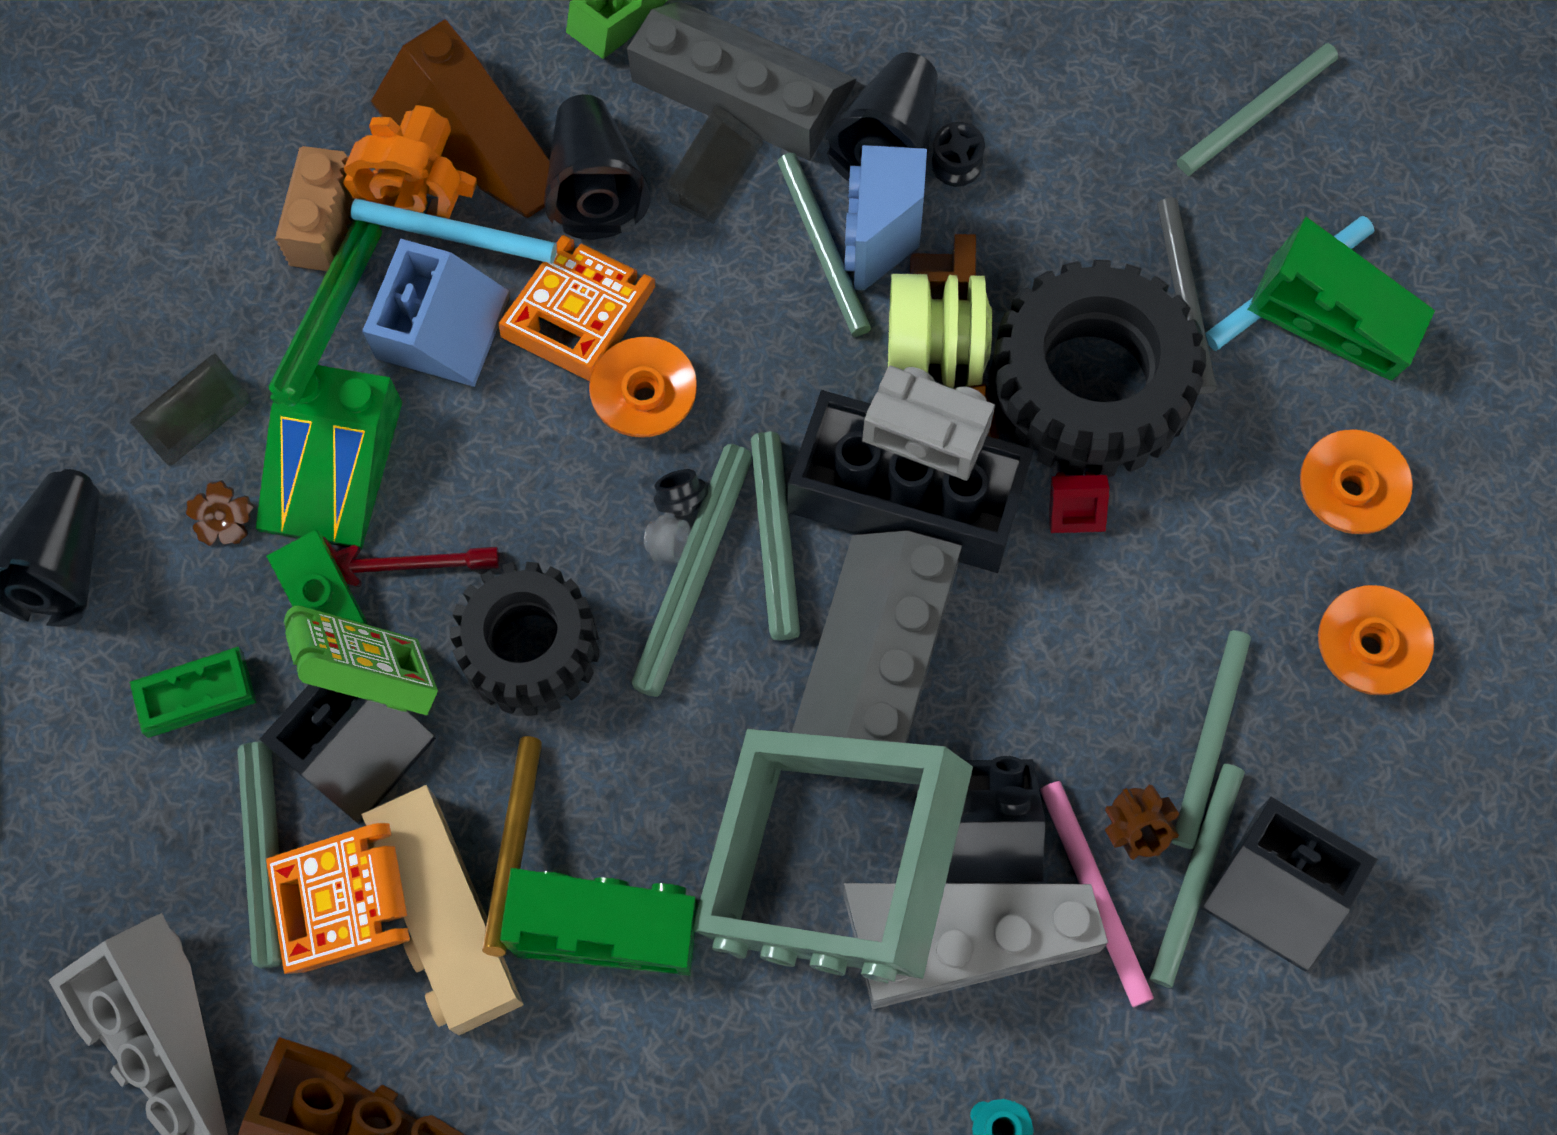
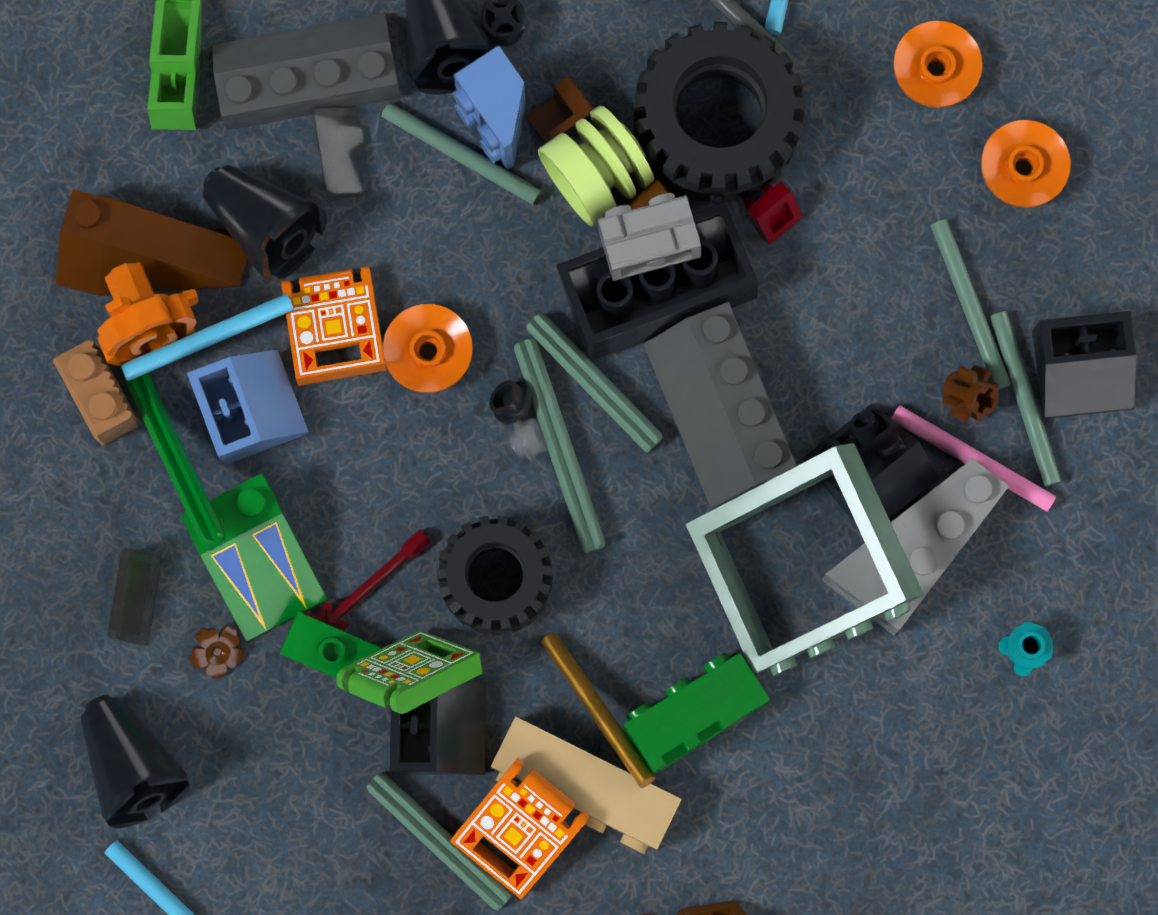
camera: 40 degrees left, 10 degrees up
(192, 692) = (304, 777): green plate -> none

